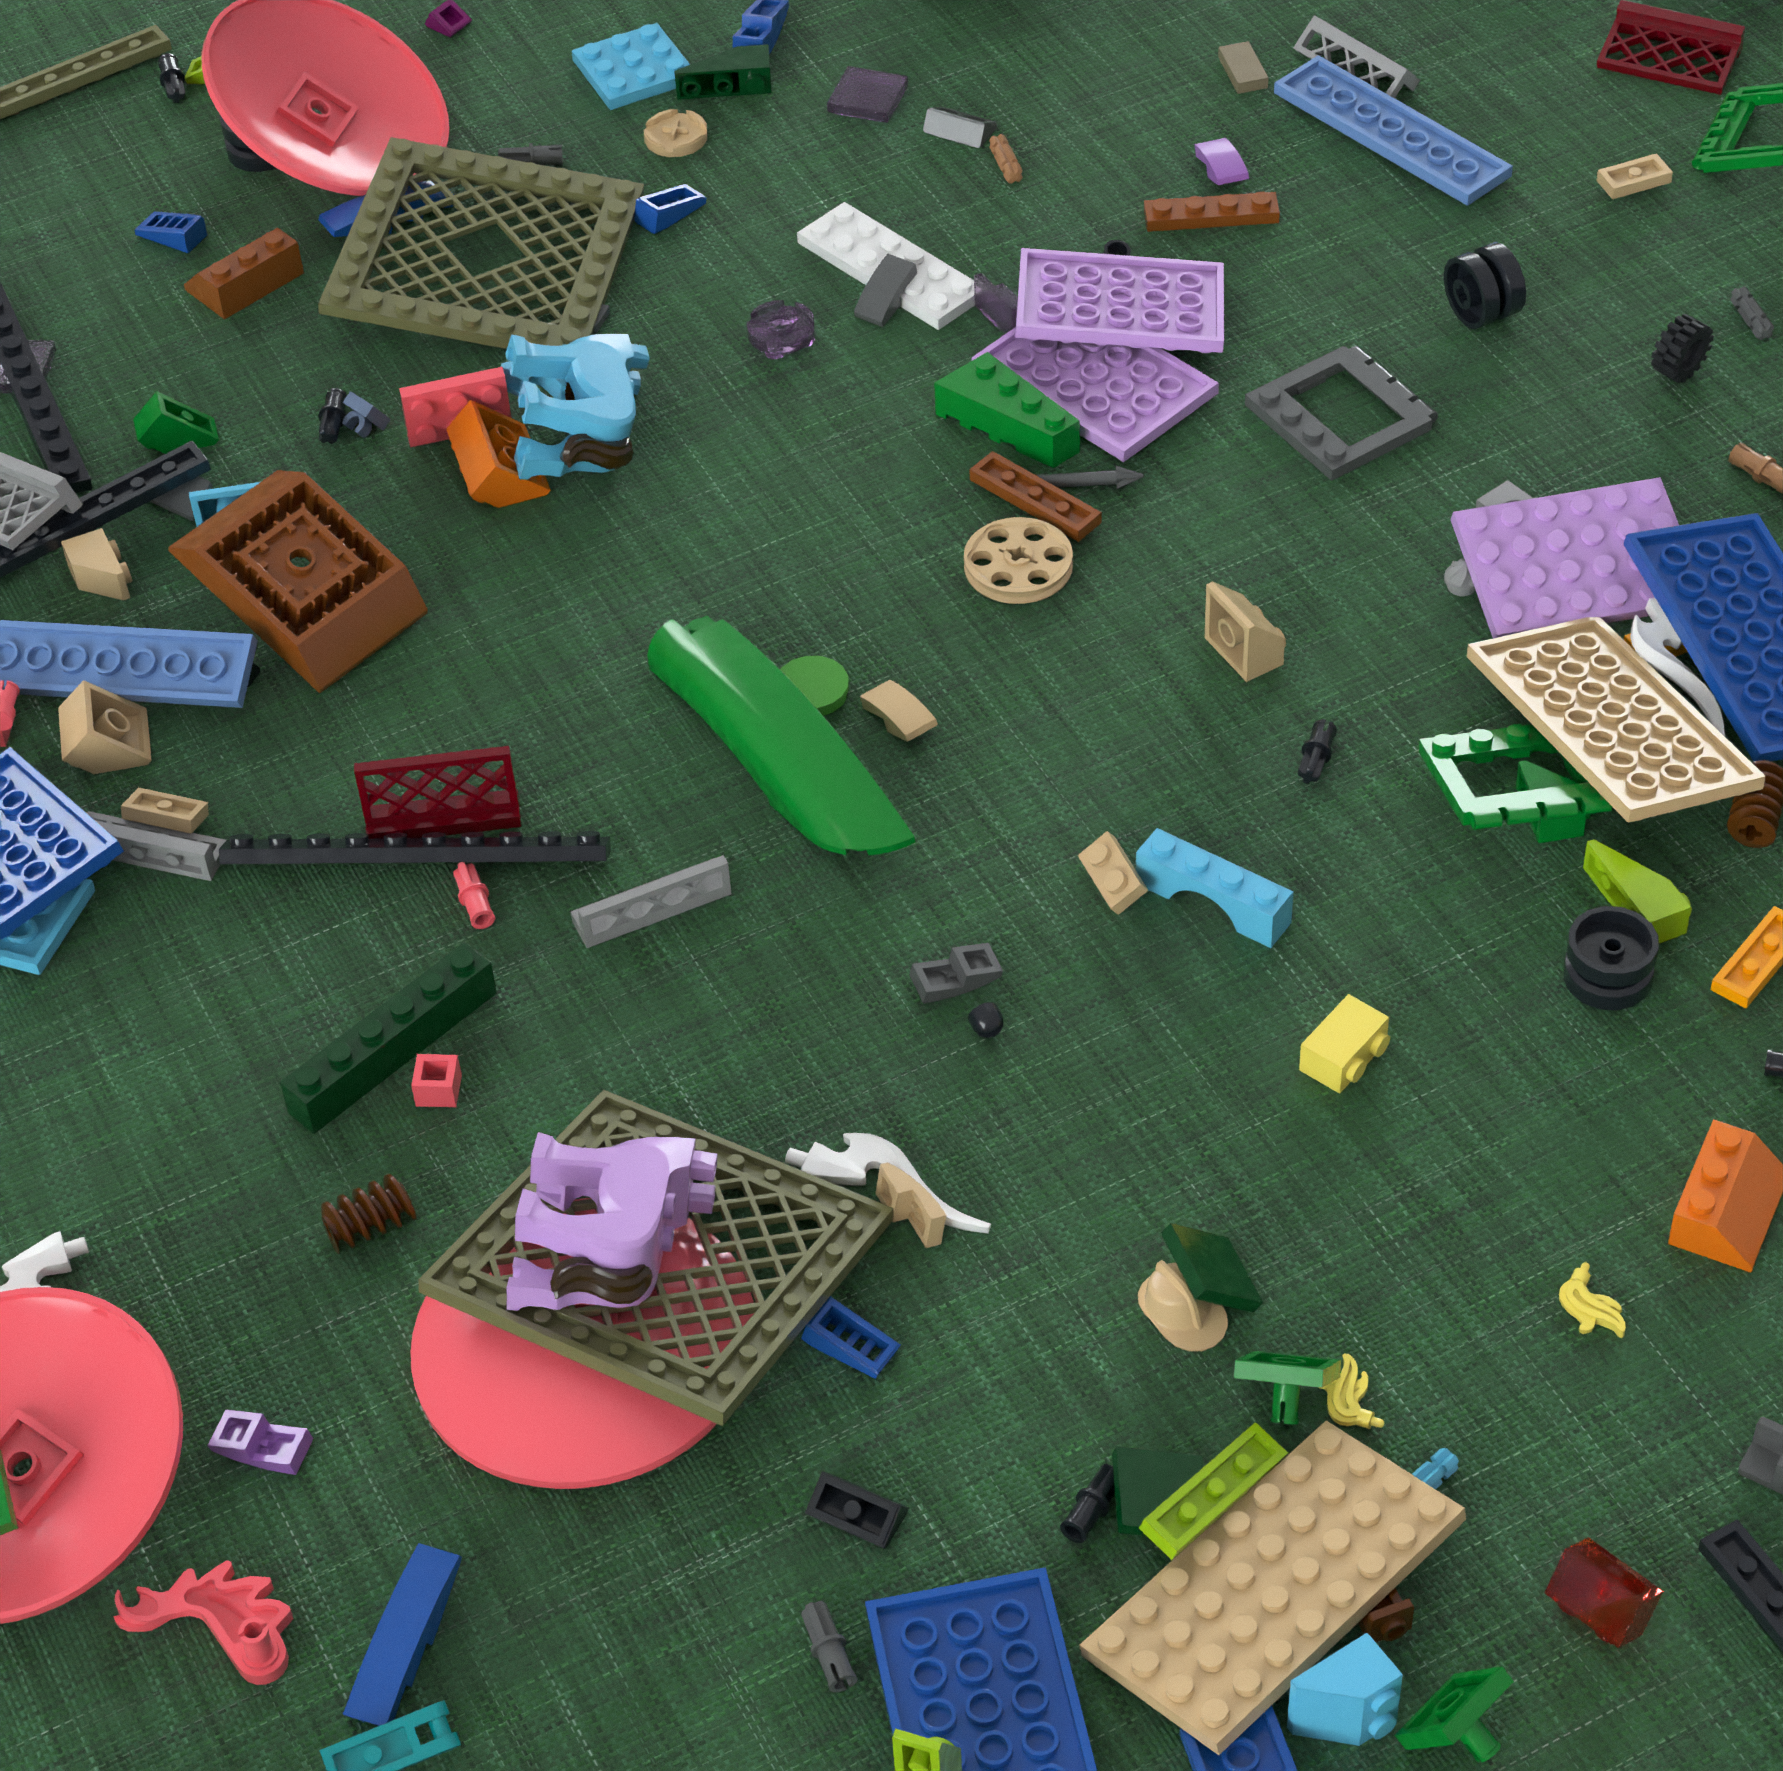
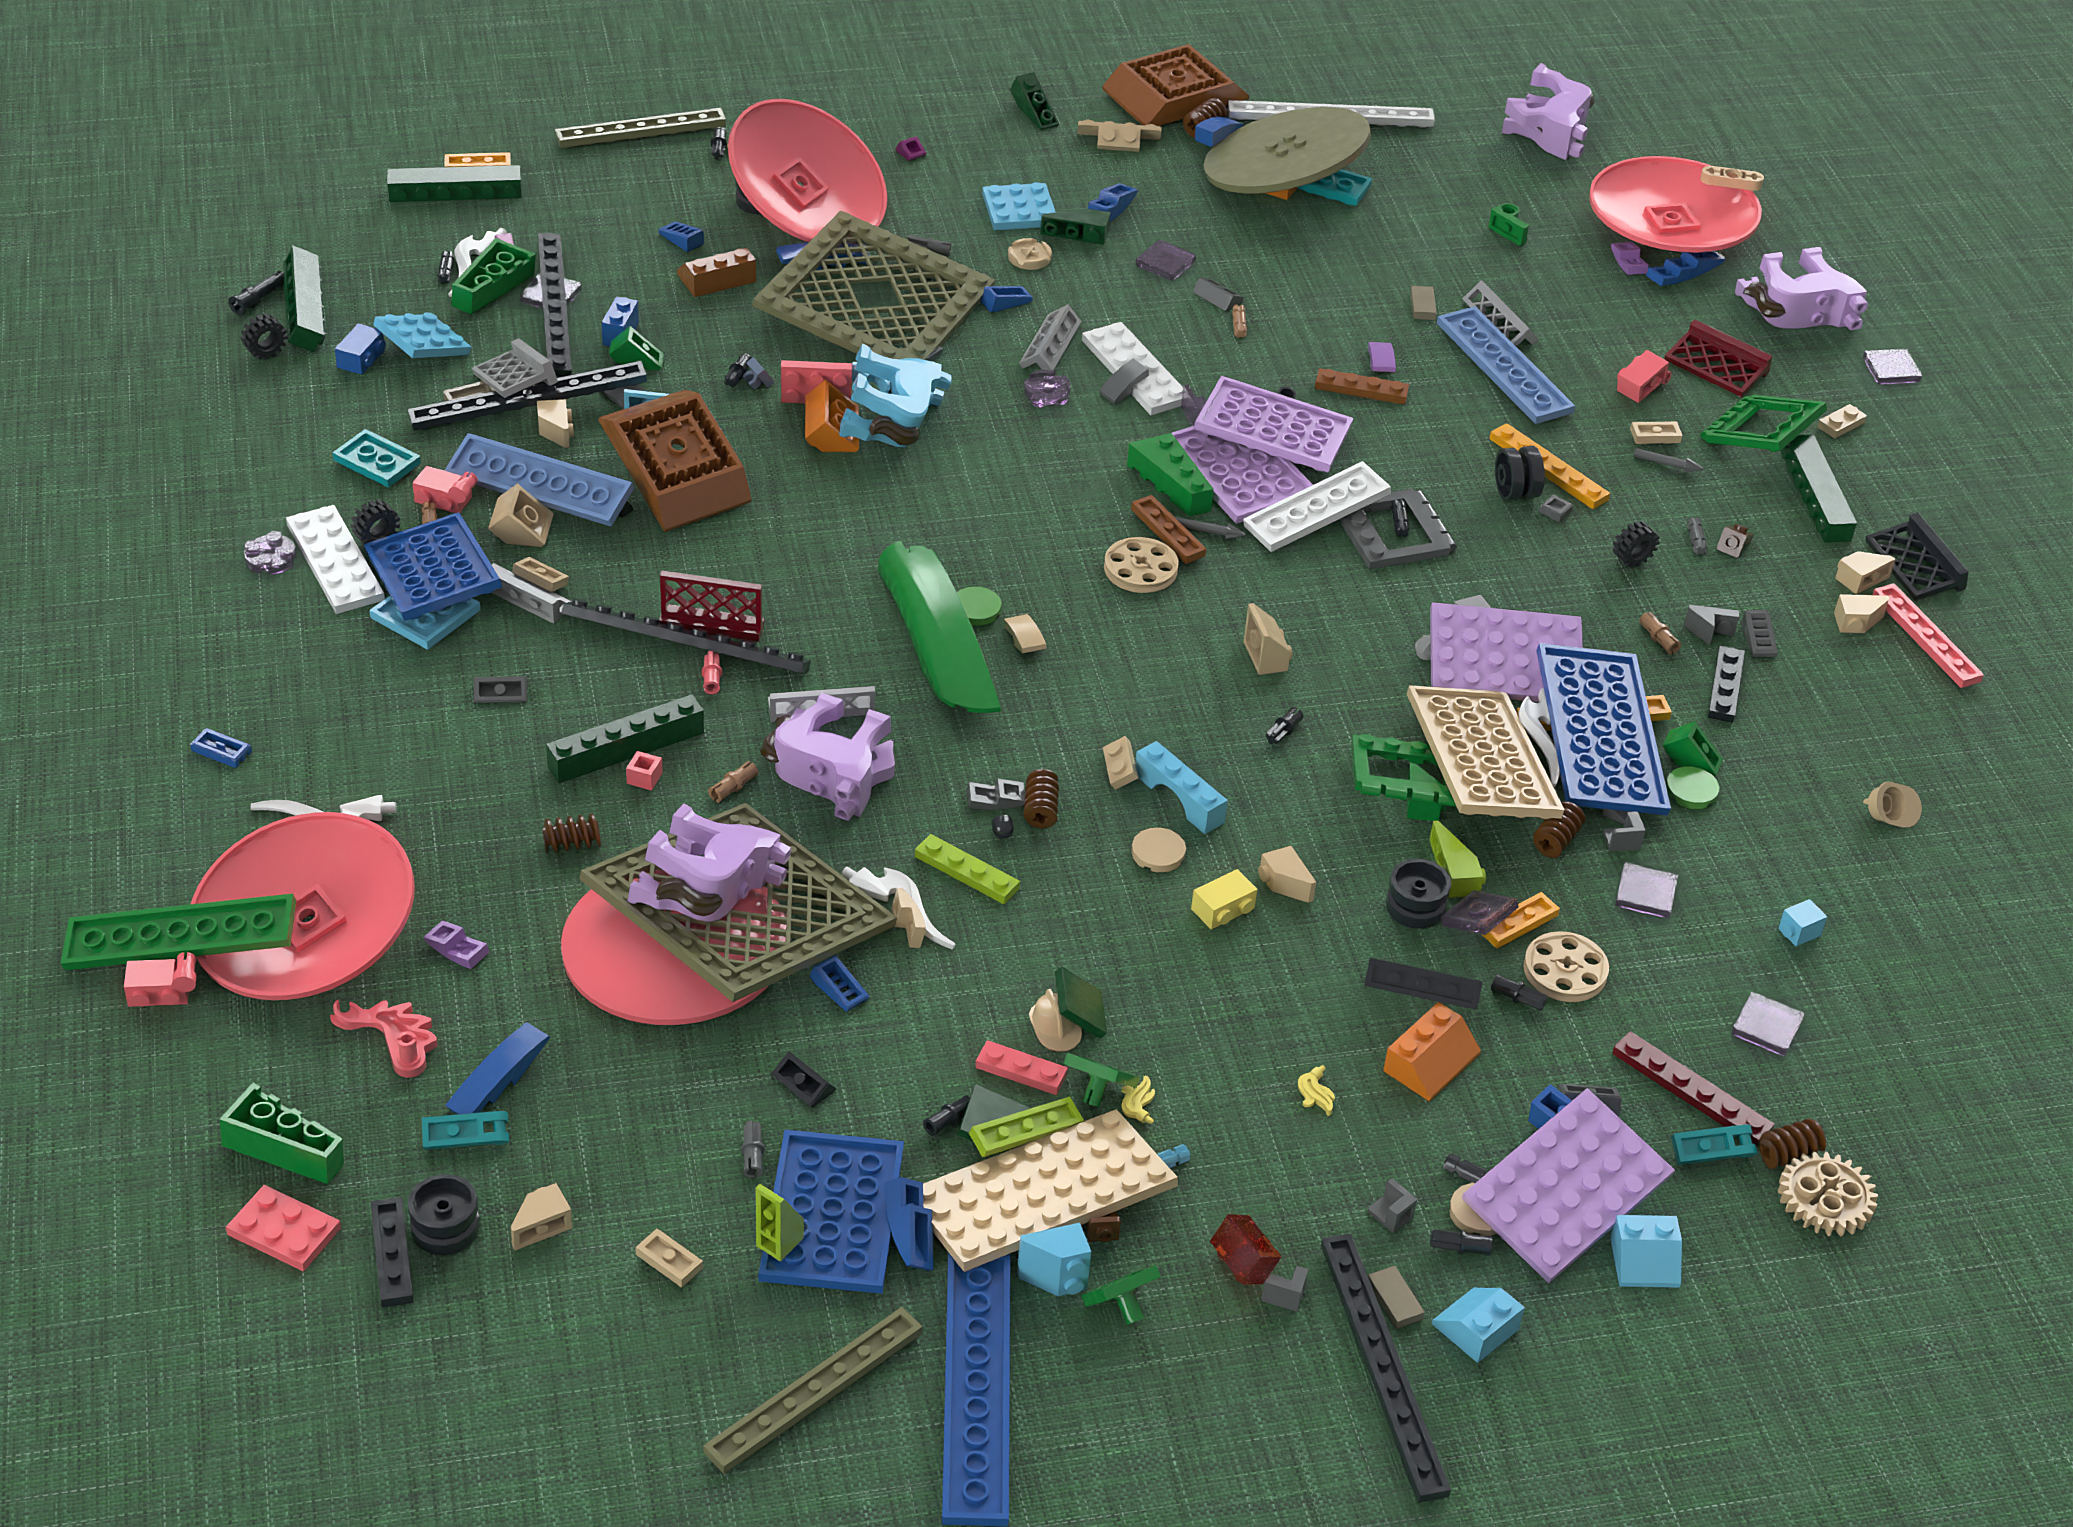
camera: 10 degrees right, 5 degrees down
(133, 383) = (618, 318): none -> blue brick
(172, 1009) = (500, 689): none -> dark grey slope
(571, 1059) = (733, 781): none -> medium nougat pin
(700, 992) = (829, 762): none -> lavender piece
(757, 253) = (1051, 339): none -> light grey fence
(960, 1100) = (967, 869): none -> lime plate
(1026, 961) = (1041, 798): none -> reddish brown piece
(1108, 1698) = (910, 1222): none -> blue slope
(1163, 1393) = (1021, 1067): none -> coral plate
(1218, 991) = (1158, 849): none -> tan tile
(1228, 408) = (1316, 506): none -> white plate
(1344, 393) = (1400, 518): none -> black axle
(1416, 980) = (1287, 874): none -> tan slope
(1539, 271) = (1555, 469): none -> light orange plate
(1547, 322) = (1556, 508): none -> dark grey tile
(1584, 99) = (1643, 376): none -> coral hinge
(1681, 1098) = (1423, 983): none -> black fence
(1681, 1638) = (1285, 1292): none -> dark grey panel
(1696, 213) = (1688, 465): none -> dark grey piece
(1704, 962) = (1479, 912): none -> clear purple tile

